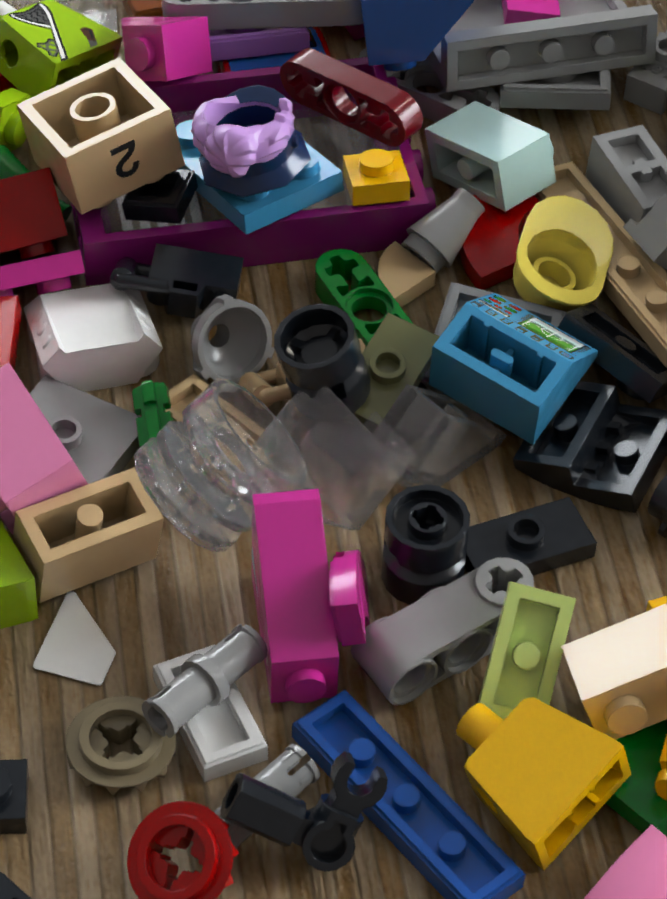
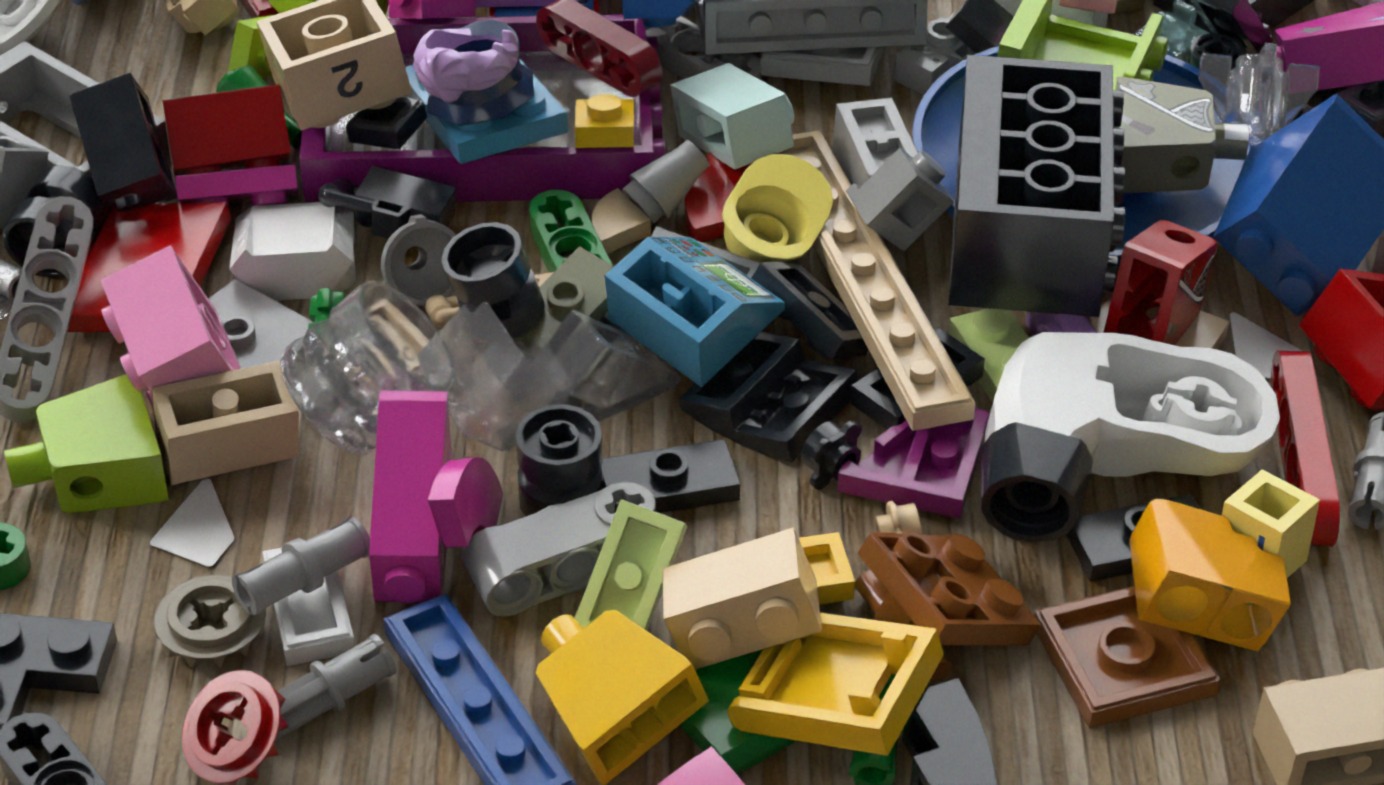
camera: 10 degrees right, 5 degrees down
(324, 830) = (379, 721): black bar -> none

